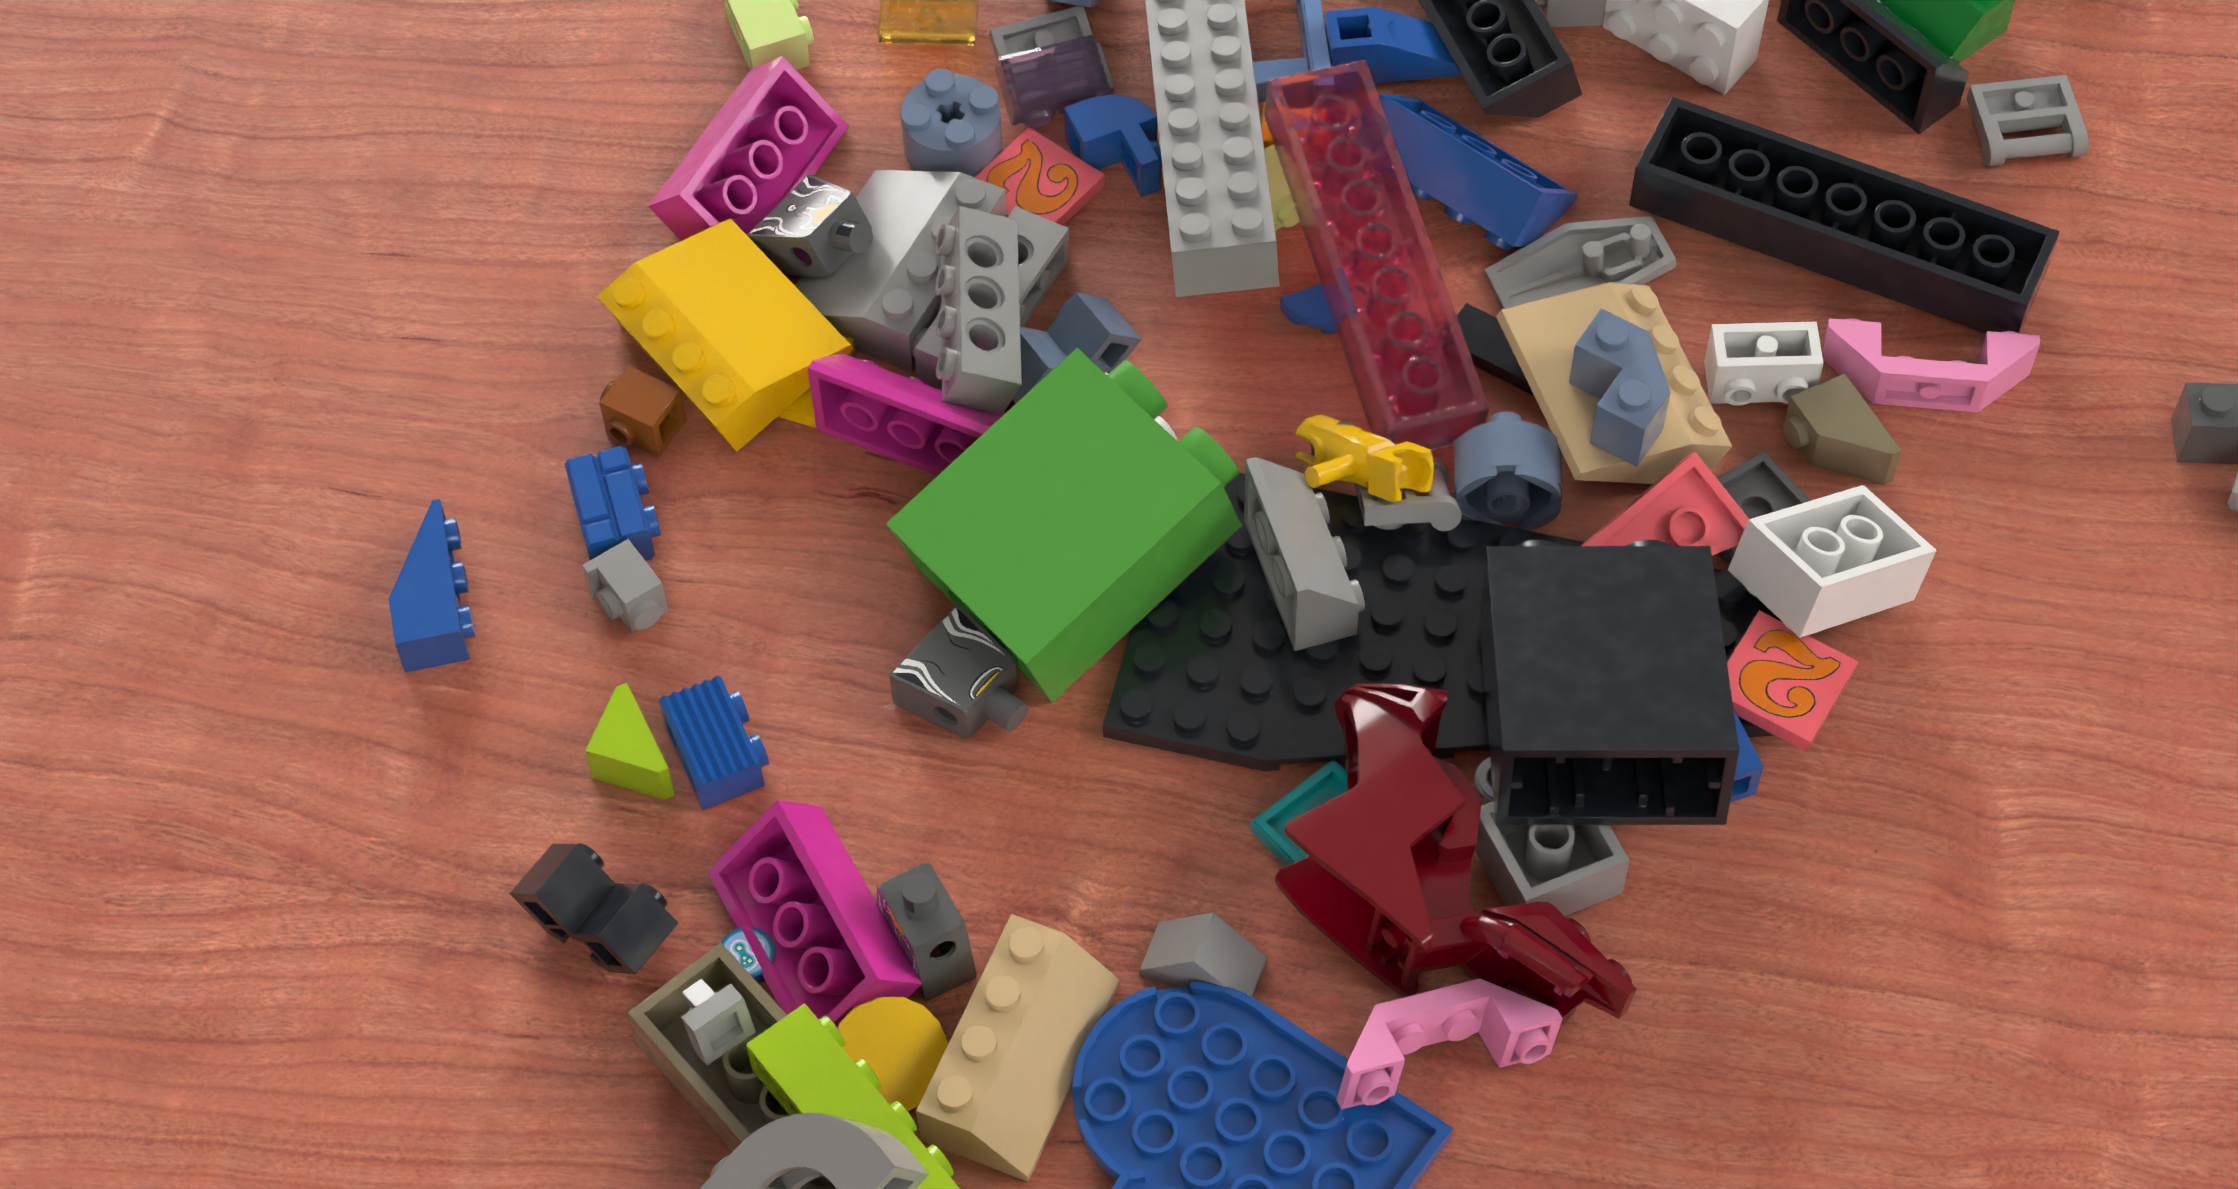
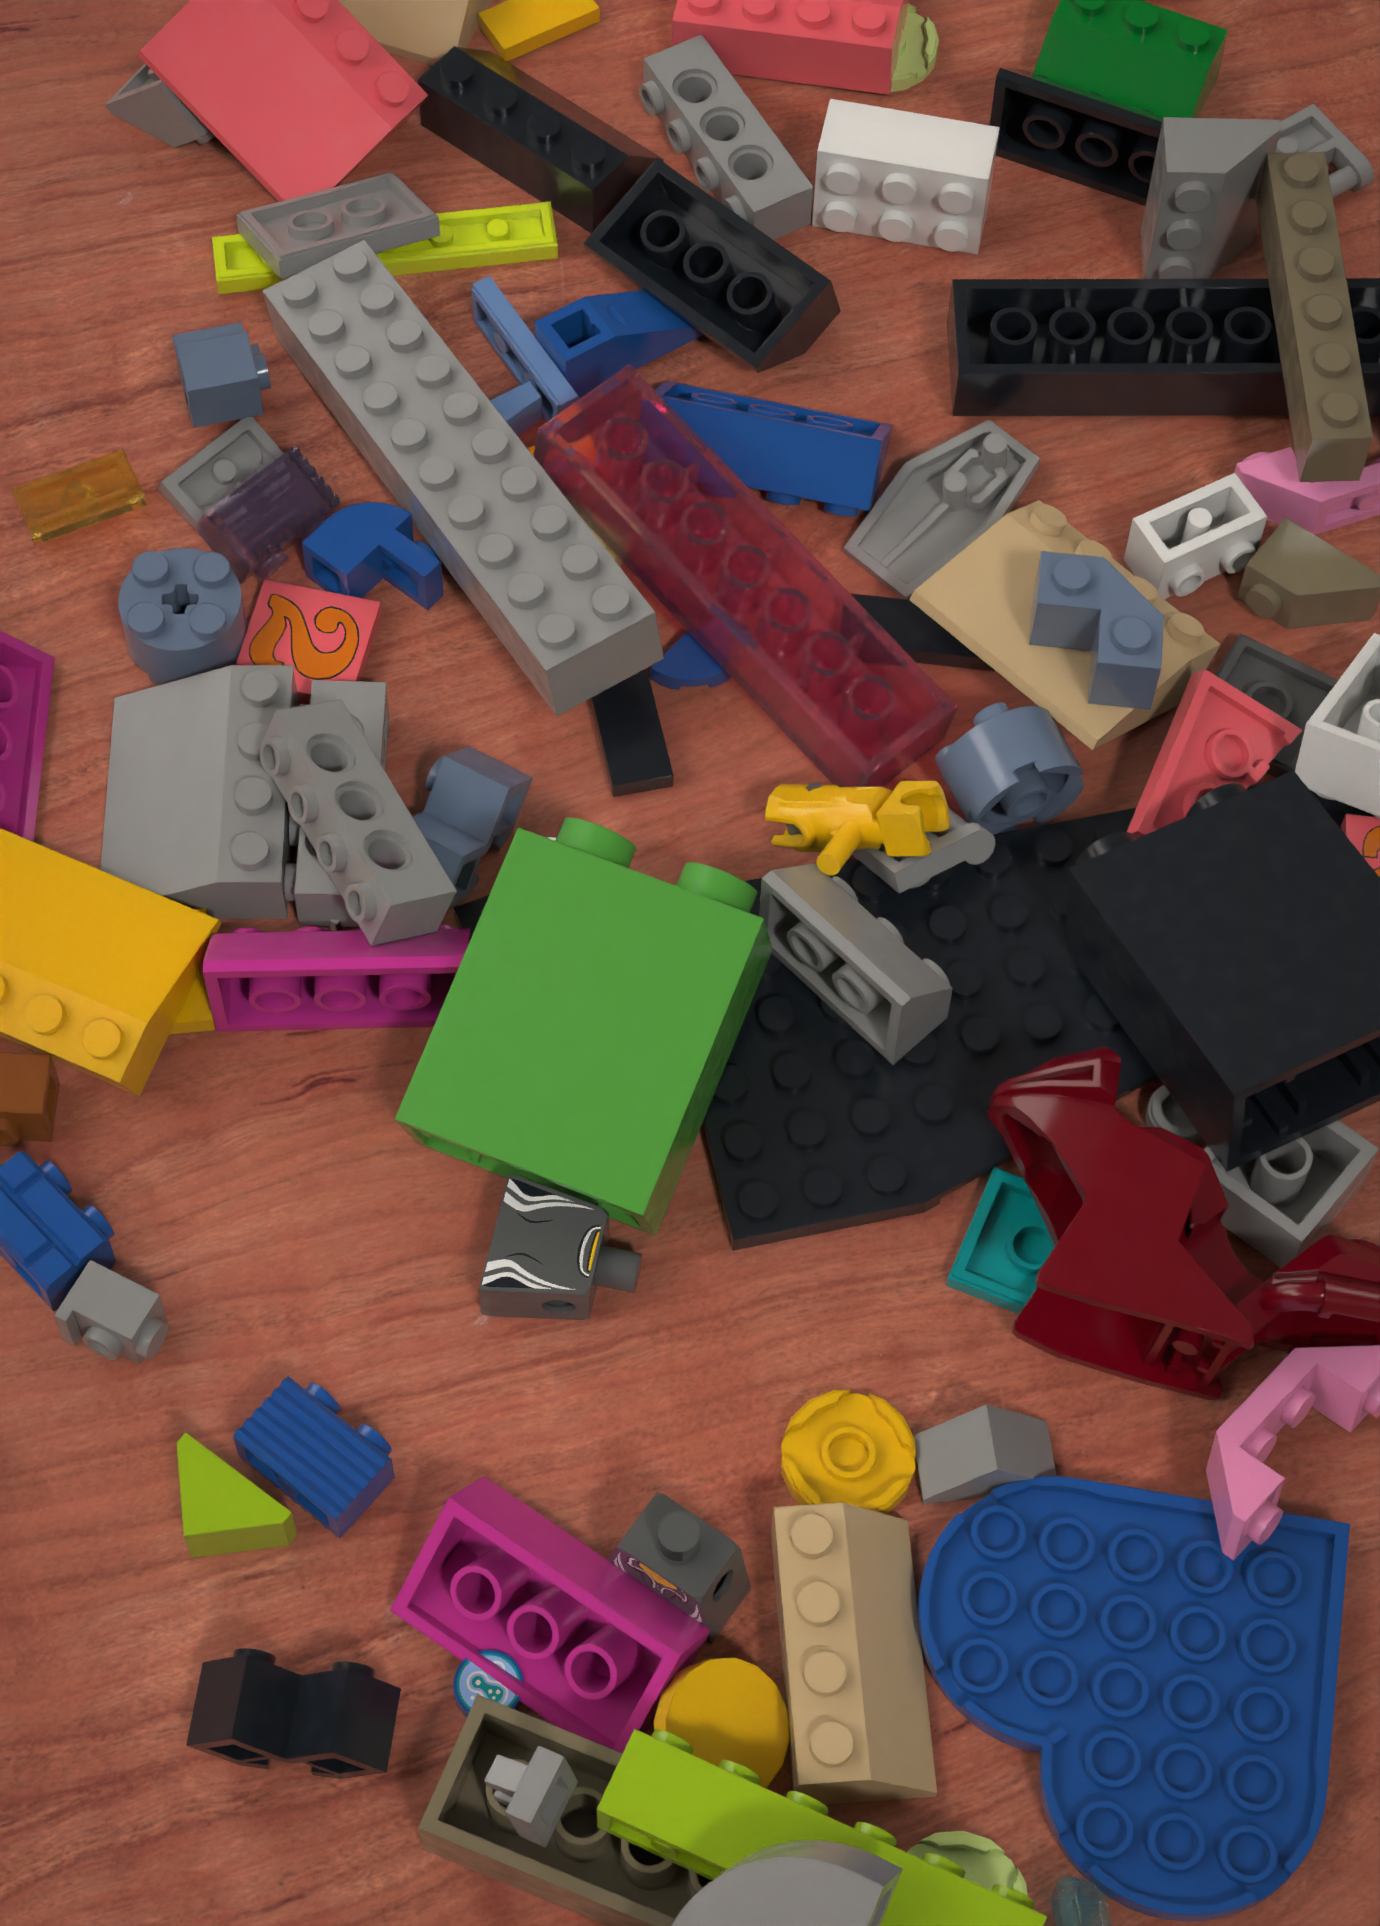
camera: 30 degrees left, 5 degrees up
(813, 229) = (96, 798): dark grey torso -> none
(1104, 912) = (848, 1452): none -> yellow tile
(1242, 335) = (632, 737): none -> black tile
(1918, 105) = (1203, 194): none -> light grey slope
(1943, 225) = (1313, 318): none -> dark tan brick

